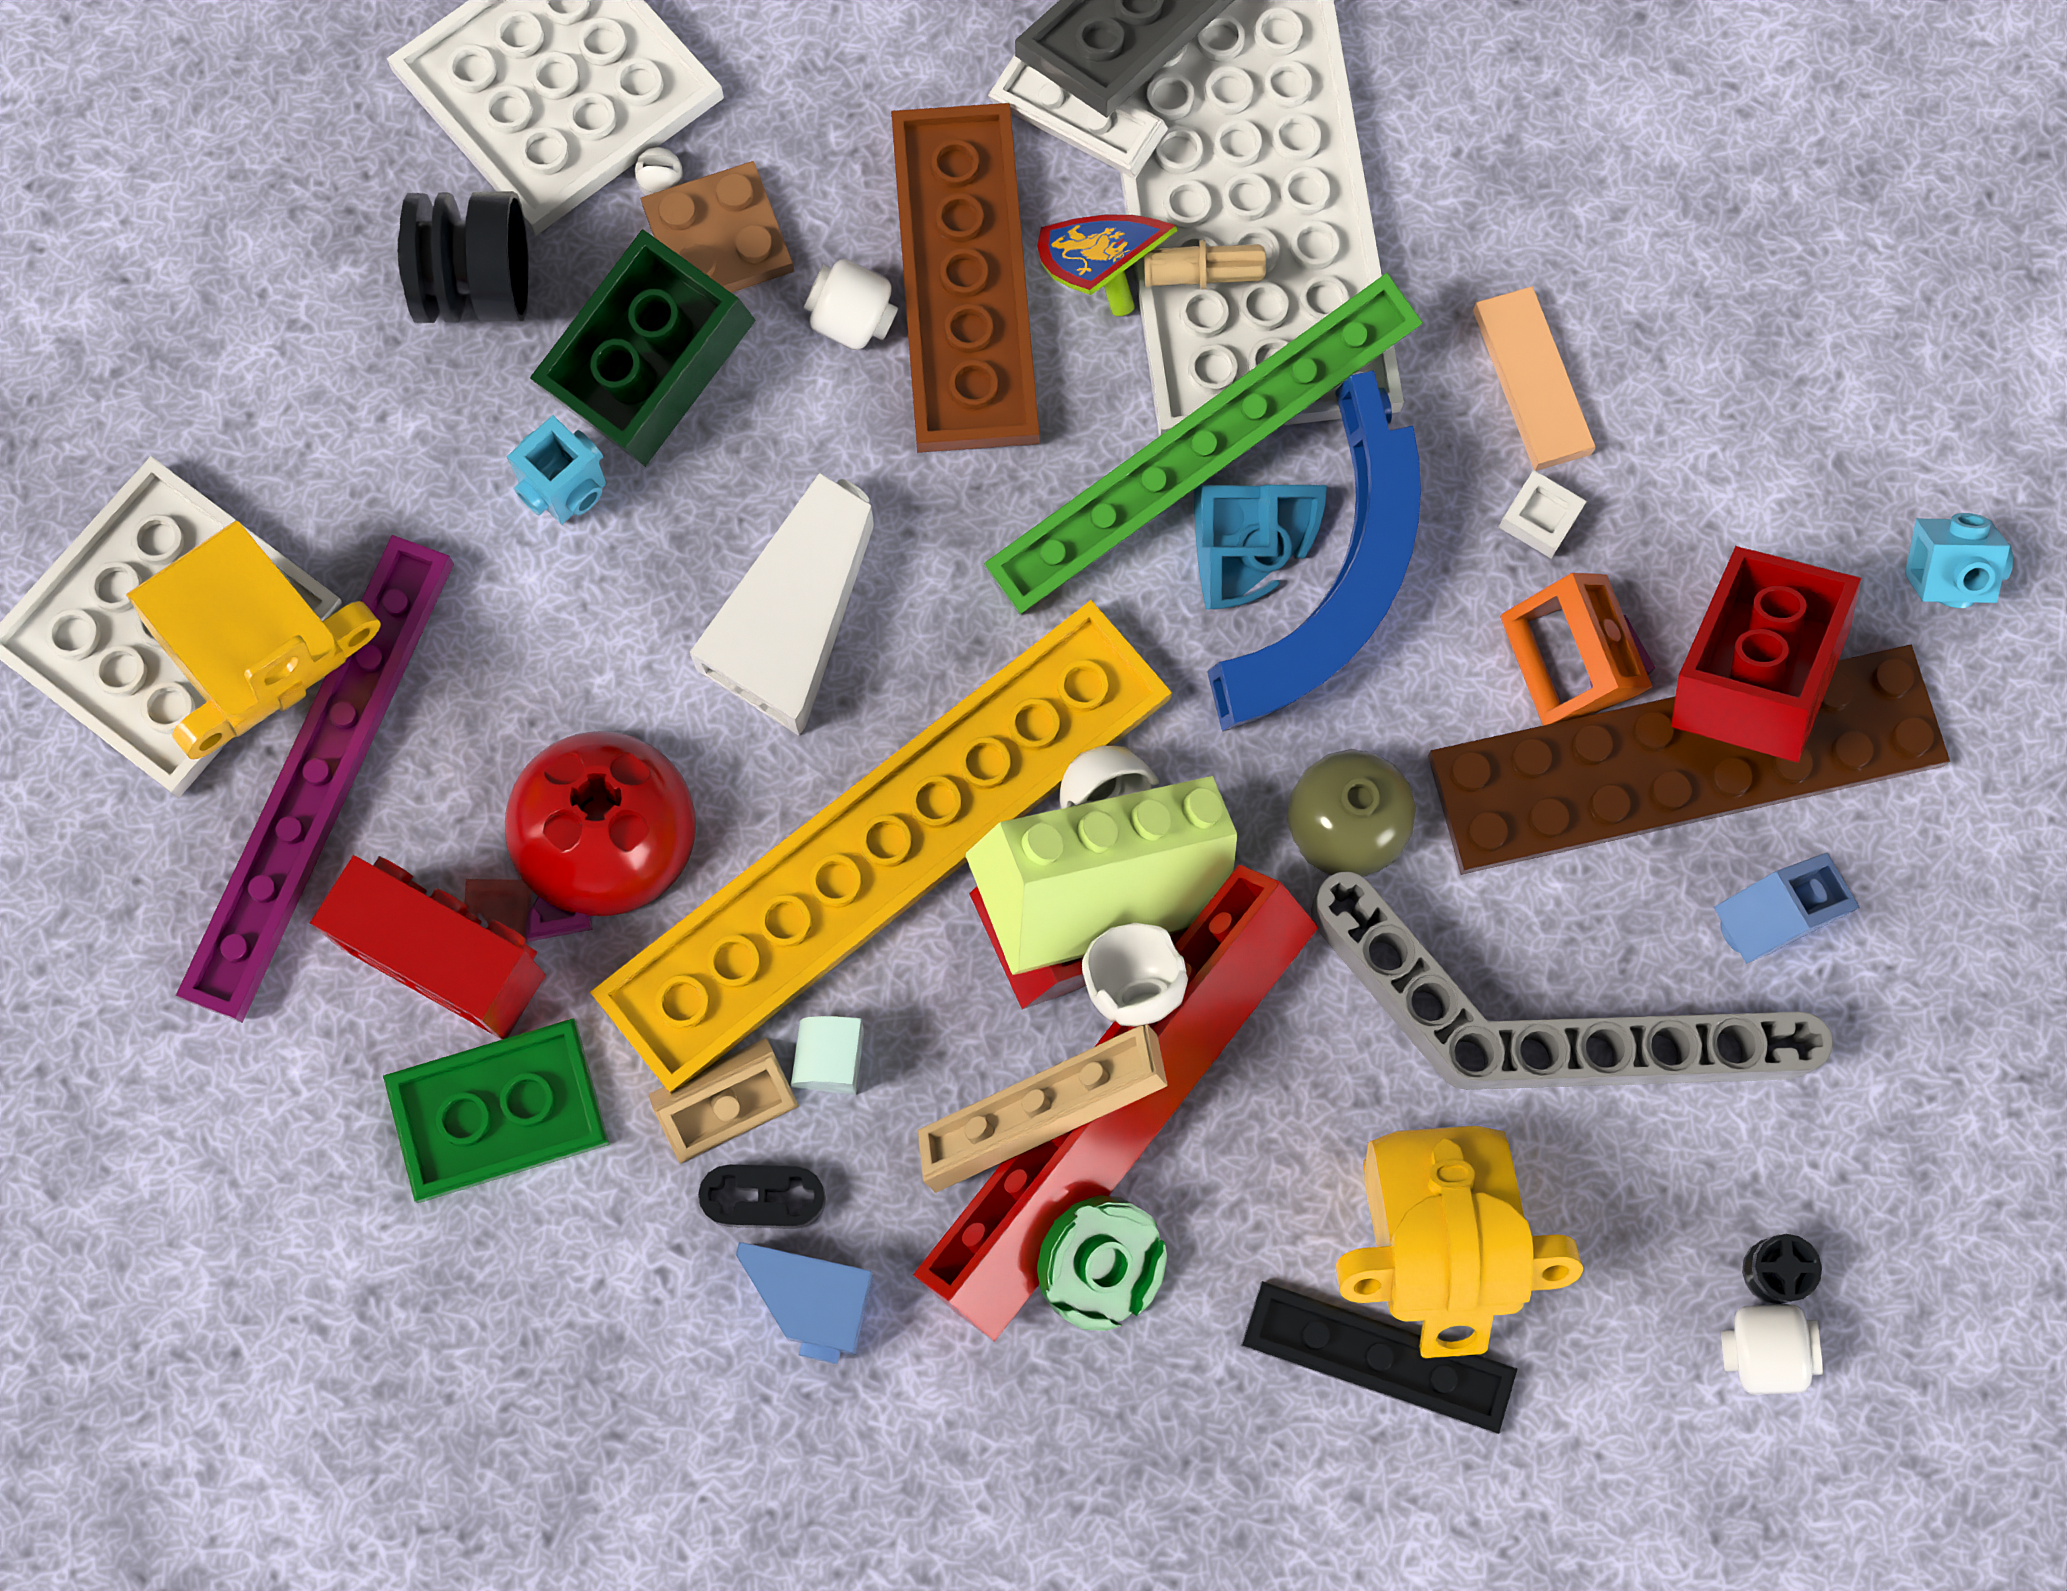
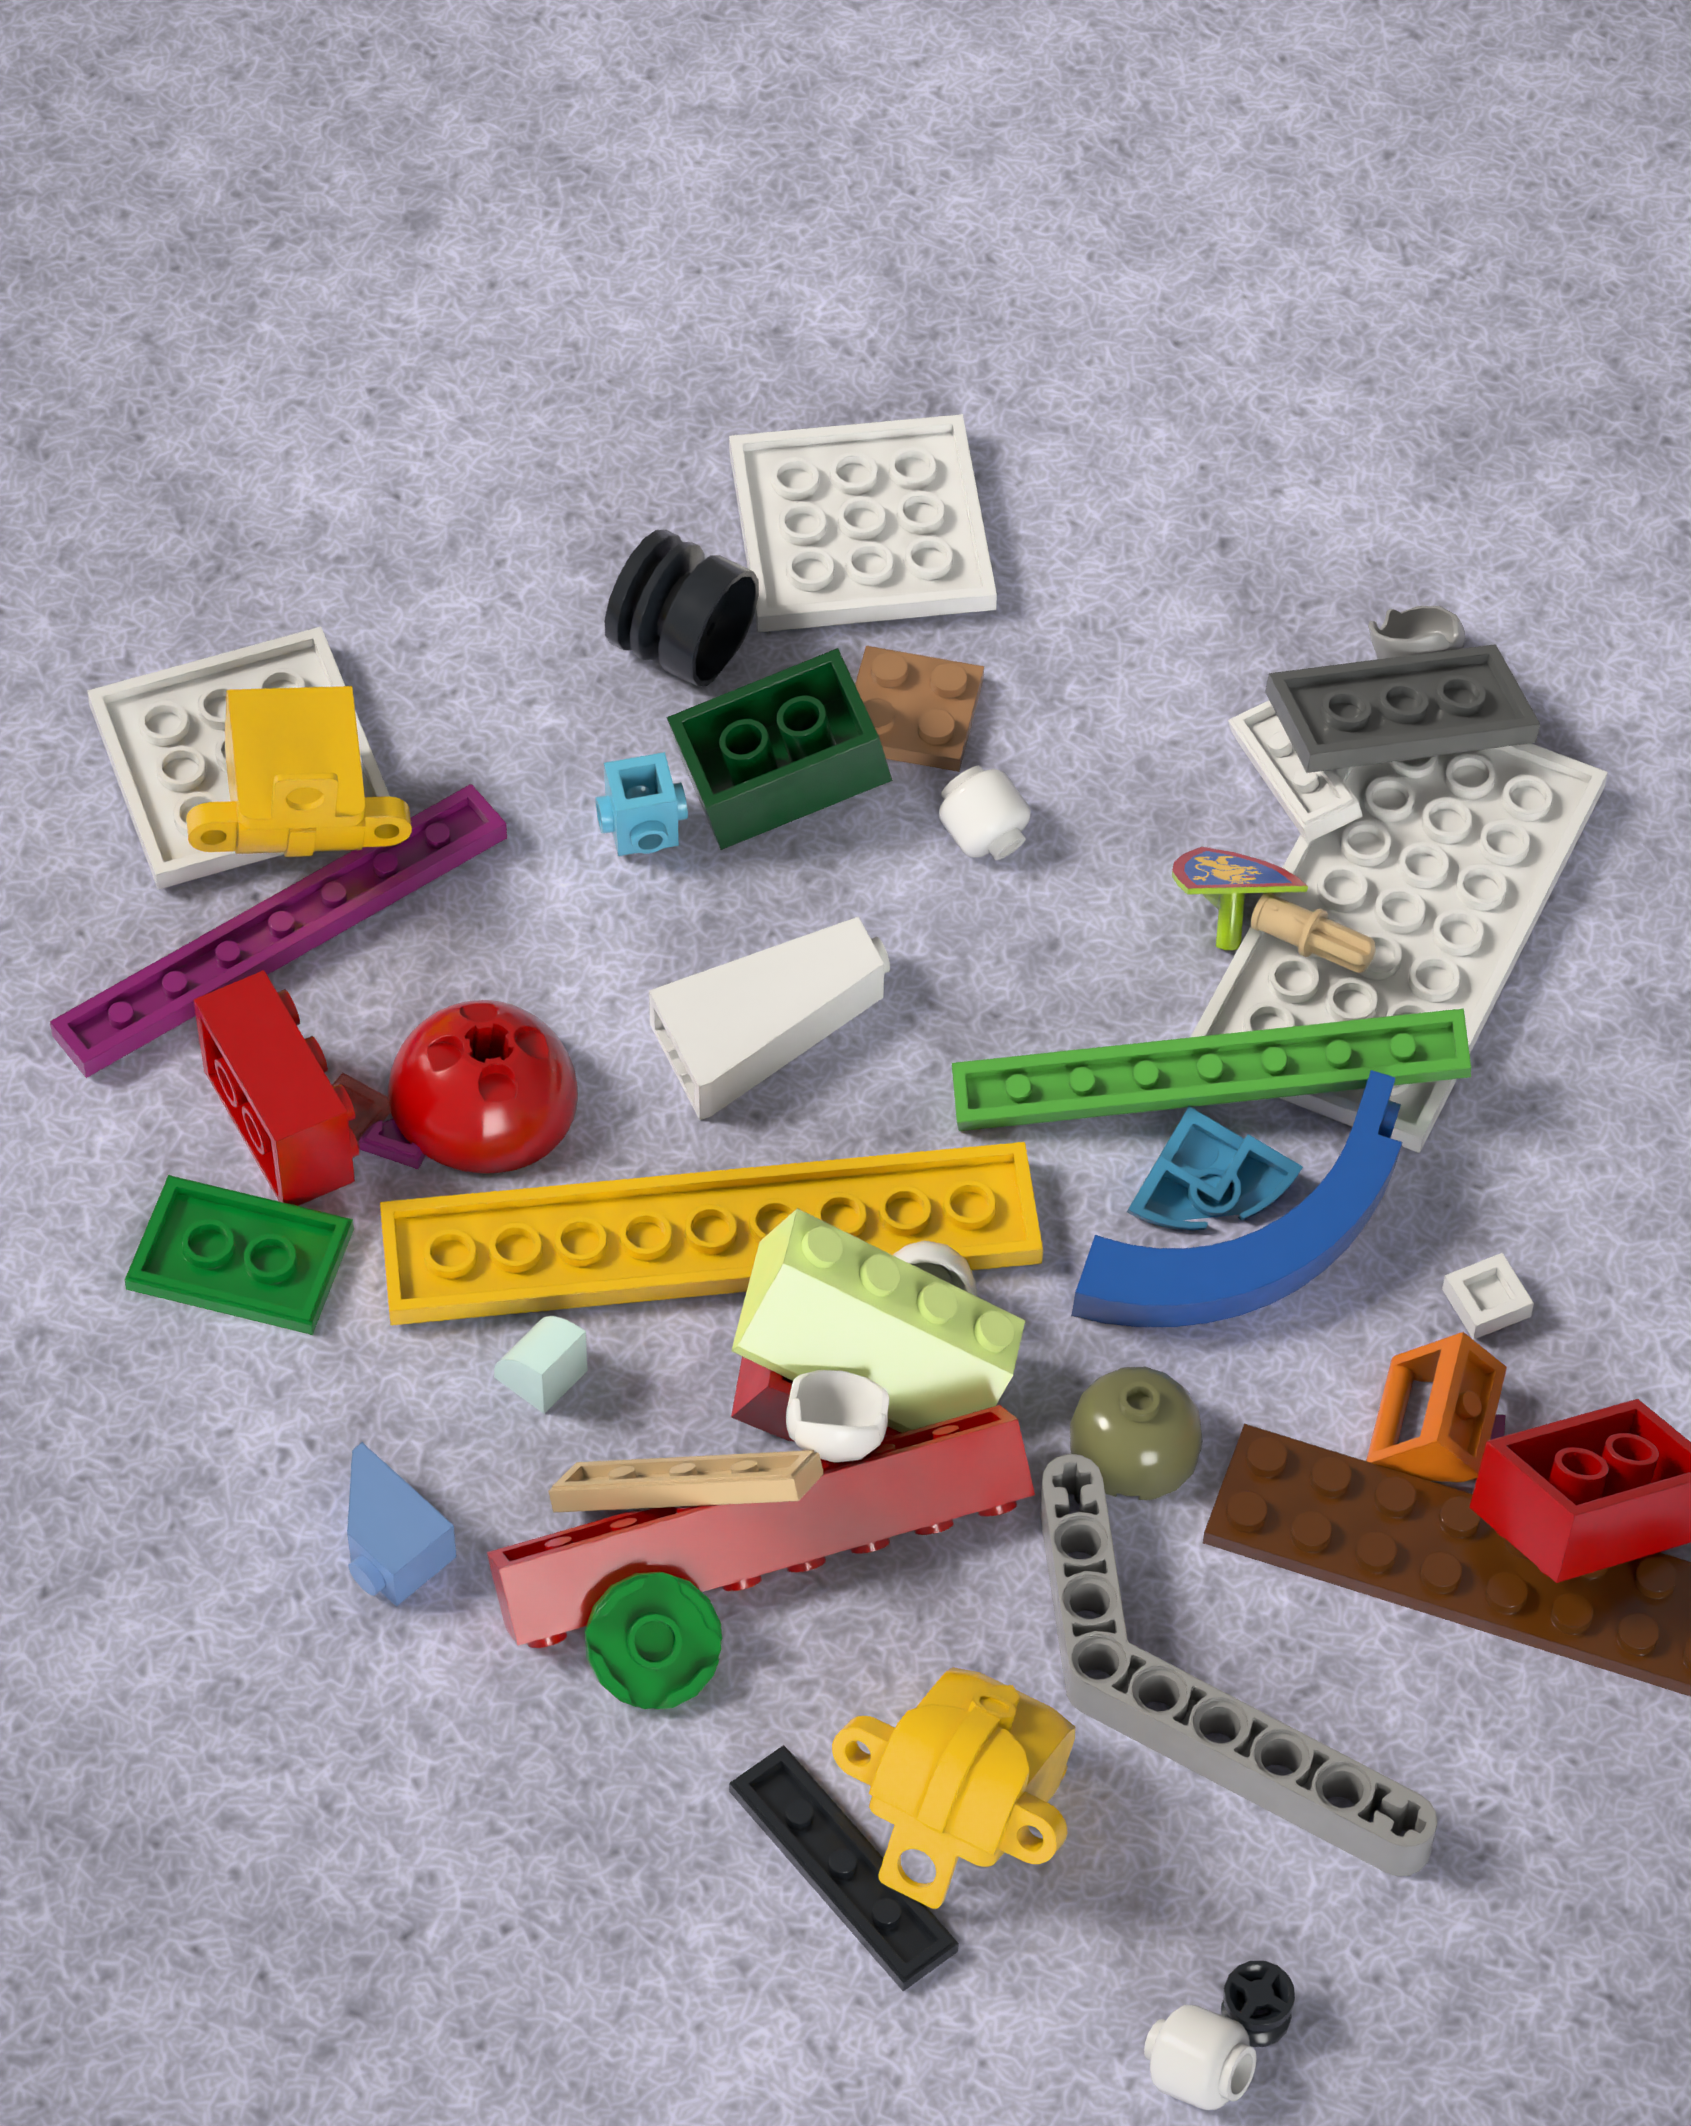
camera: 35 degrees right, 20 degrees down
(655, 177) = (892, 632): white hinge -> none
(724, 1101) = (429, 1354): tan slope -> none
(762, 1180) = (415, 1428): black beam -> none
(964, 278) = (1100, 847): dark orange plate -> none
(1533, 378) = (1563, 1190): light nougat tile -> none
(1784, 907) = (1479, 1719): medium blue slope -> none

